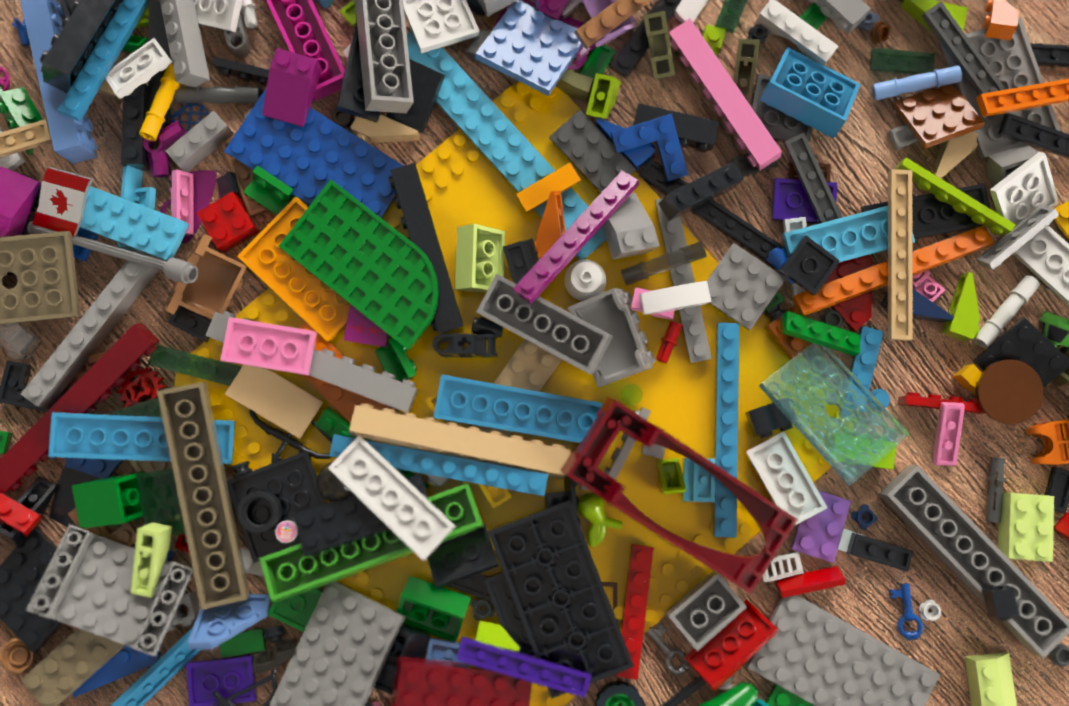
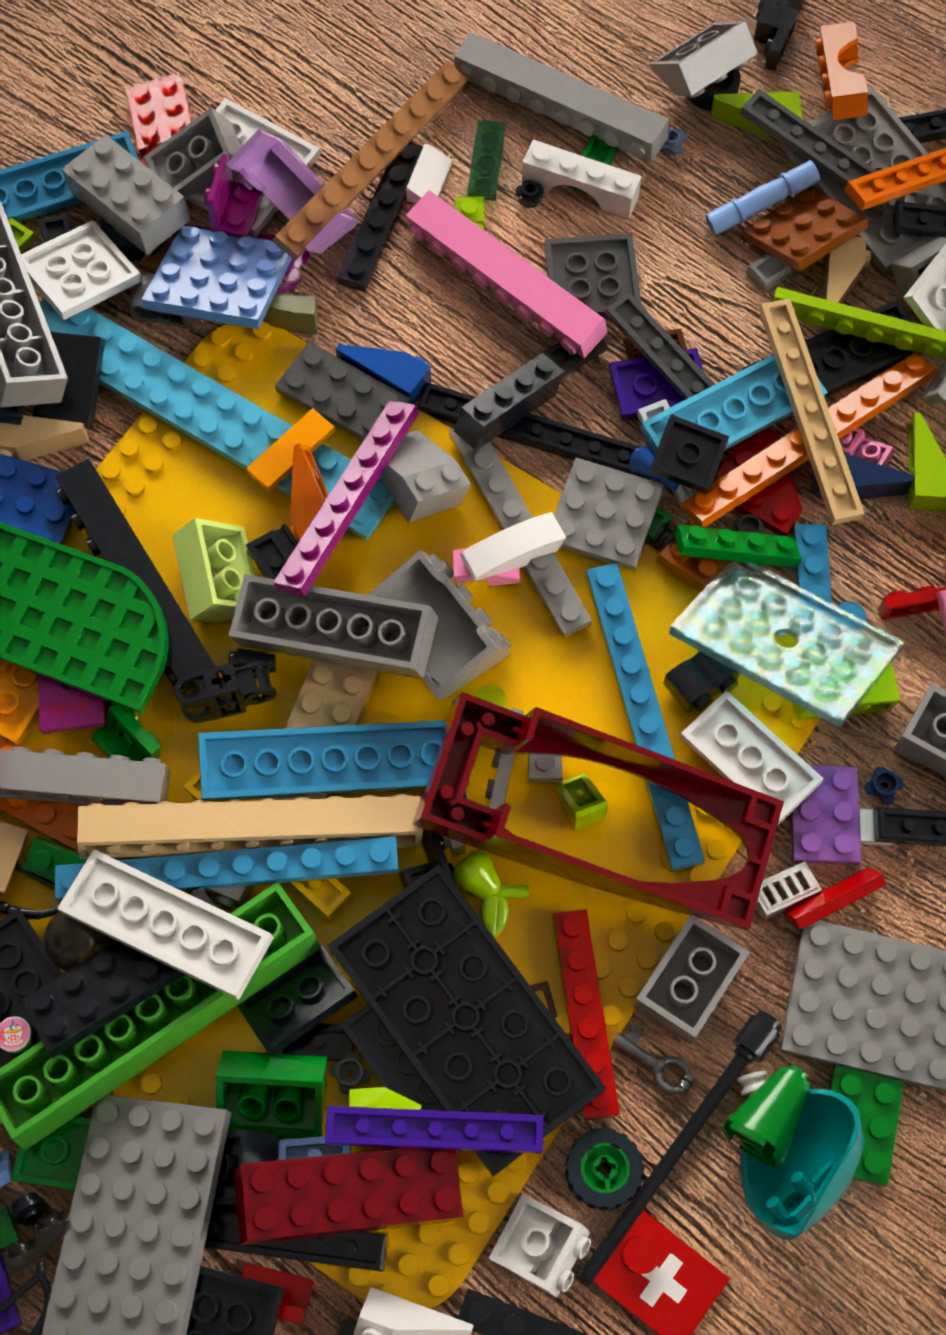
camera: 15 degrees left, 15 degrees down
(585, 279) = (375, 558): white cone -> none
(597, 61) = (319, 278): green tile -> none
(603, 96) = (336, 314): lime slope -> none
(659, 45) = (396, 232): olive arch -> none
(663, 263) = (484, 506): clear smoke piece -> none
(664, 133) = (432, 337): blue plate -> none
(668, 342) = (523, 614): red axle -> none
(691, 129) = (451, 333): black brick -> none
(698, 482) = (626, 797): medium azure plate -> none
(732, 646) = (745, 1020): red tile -> none
(746, 66) = (525, 229): olive slope -> none
(810, 92) = (621, 243): dark azure slope -> none
(880, 32) = (694, 151): reddish brown plate -> none
(901, 61) = (732, 179): clear green plate -> none

